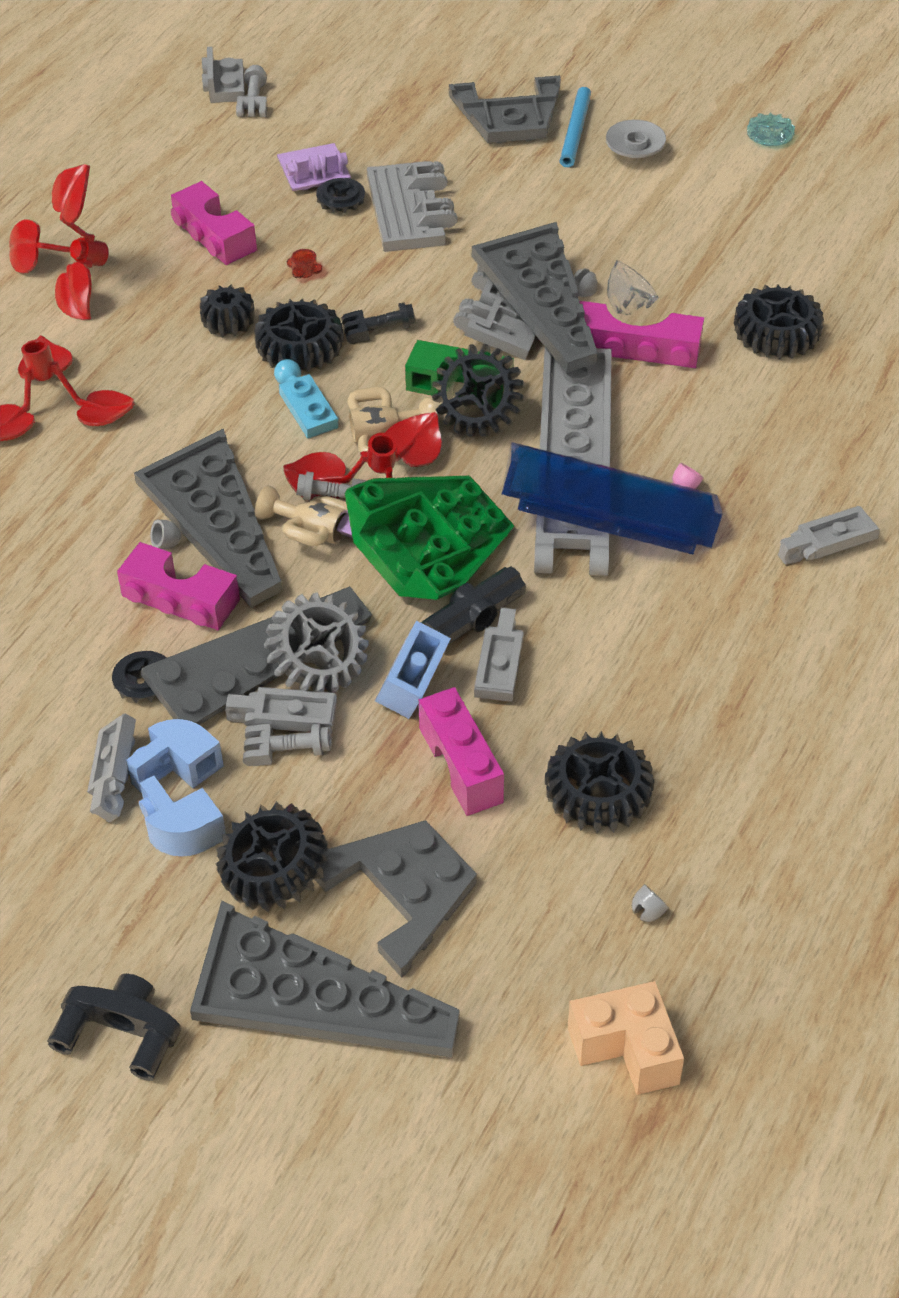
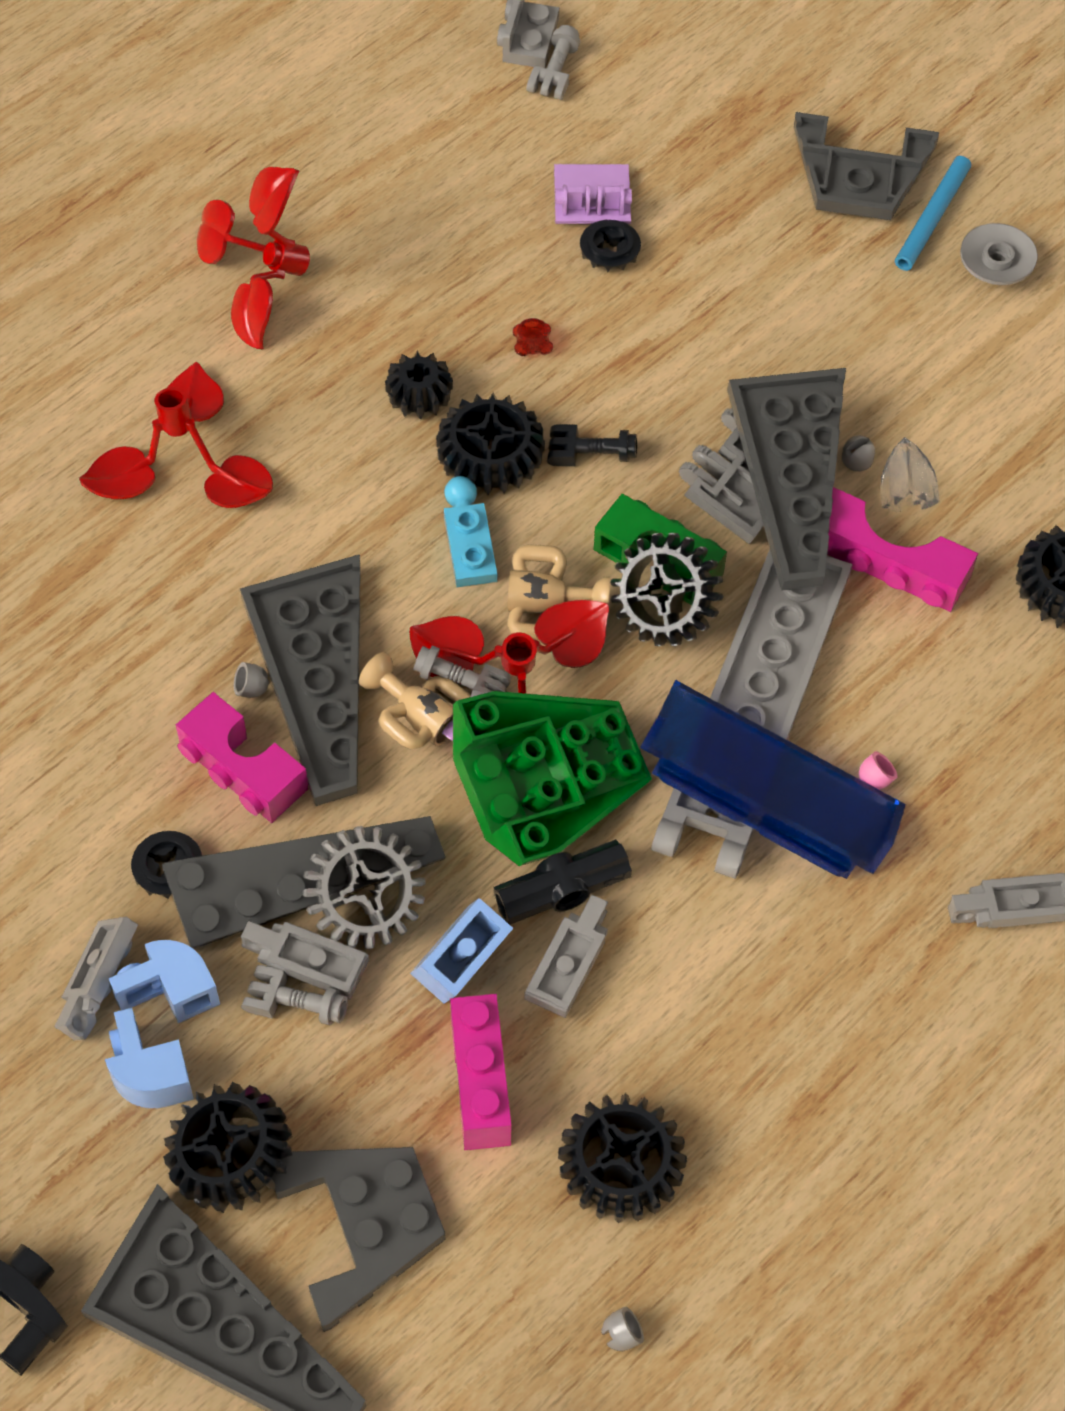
camera: 15 degrees right, 10 degrees up
(224, 236) = (451, 274): dark pink arch -> none
(407, 205) = (684, 278): light grey hinge -> none

